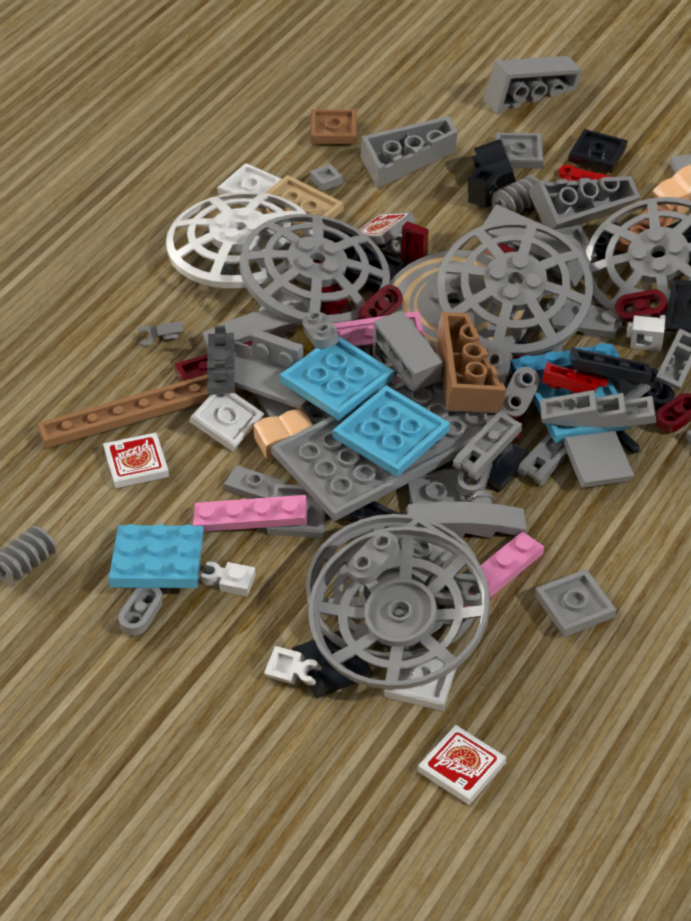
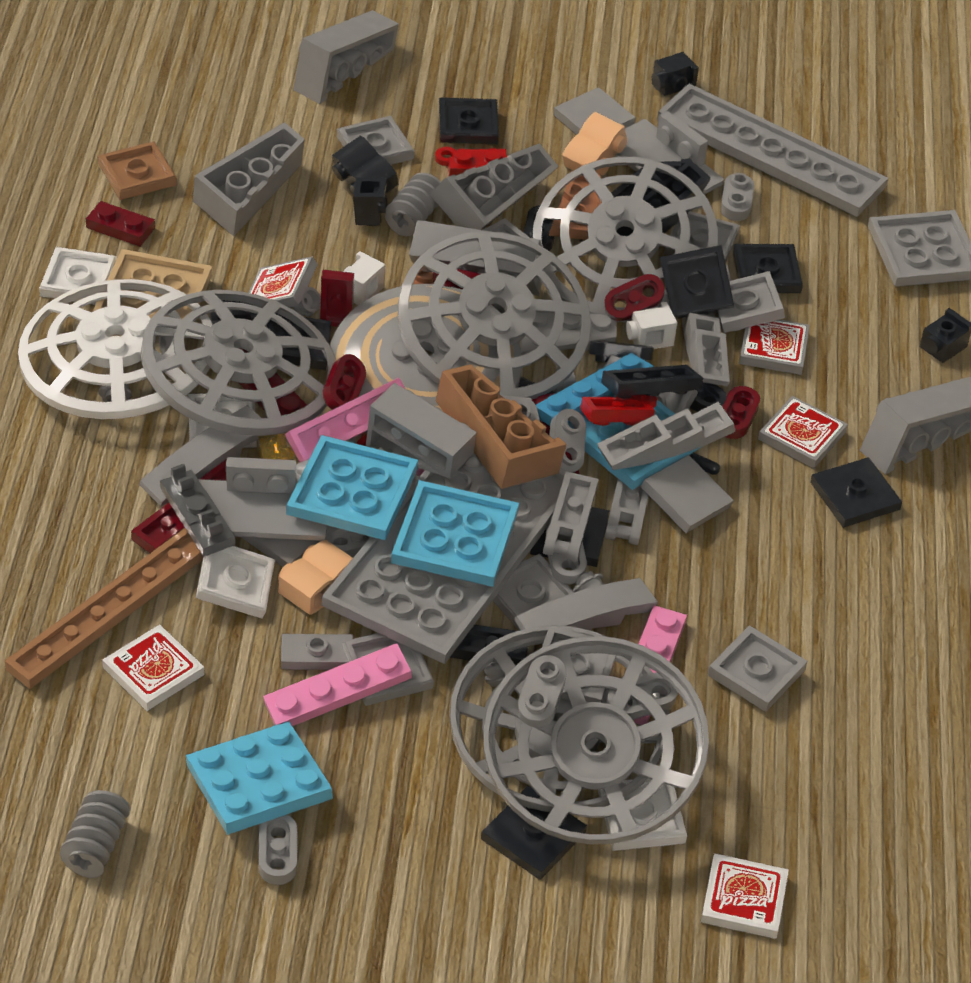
camera: 30 degrees left, 0 degrees up
(168, 331) = (93, 491): light grey plate -> none
(231, 579) = (361, 772): white plate -> none
(288, 665) = (491, 853): white plate -> none
(300, 158) = (120, 223): none -> dark red plate
(320, 330) = (302, 435): light grey plate -> none
(326, 177) = (168, 239): light grey plate -> none
(445, 237) = (368, 277): none -> white brick
(622, 346) = (604, 349): none -> black plate

